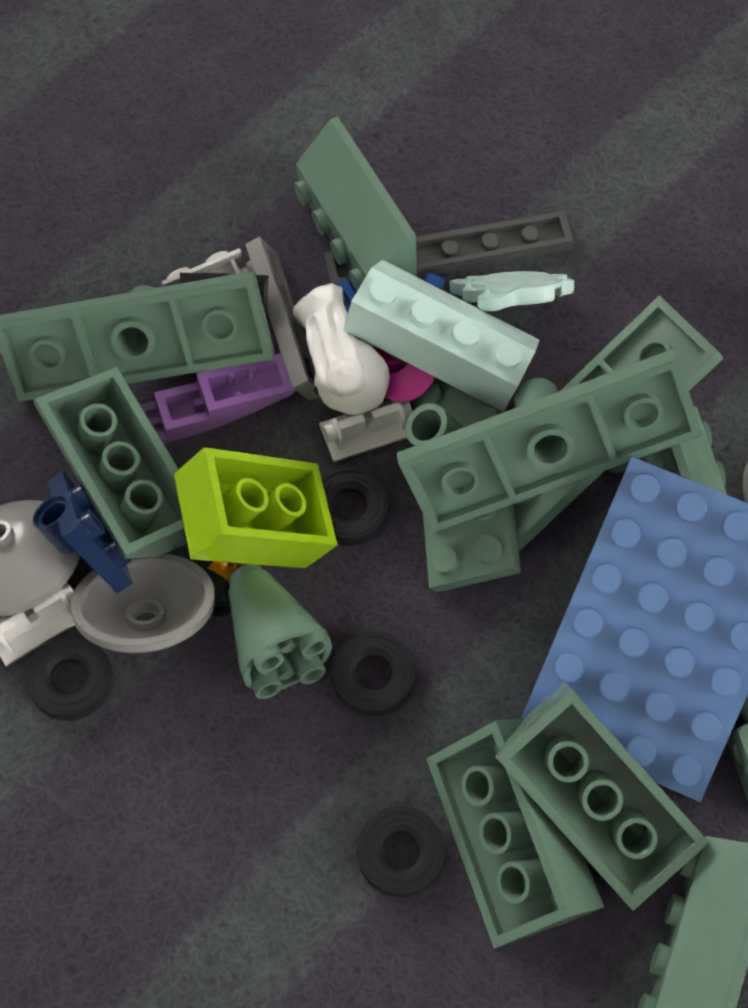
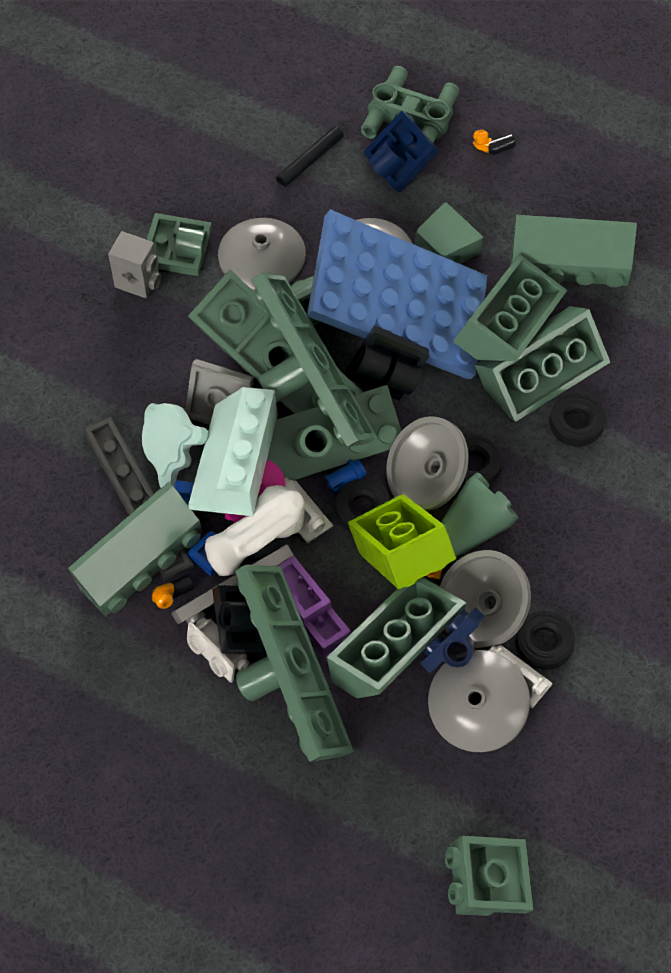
camera: 105 degrees left, 5 degrees down
(306, 260) = (164, 594): none -> arm
(373, 591) = (416, 459): none -> light grey dish
(402, 501) = (344, 475): none -> blue pin
(551, 579) = (388, 361): none -> black plate
(566, 350) = (209, 386): none -> light grey tile

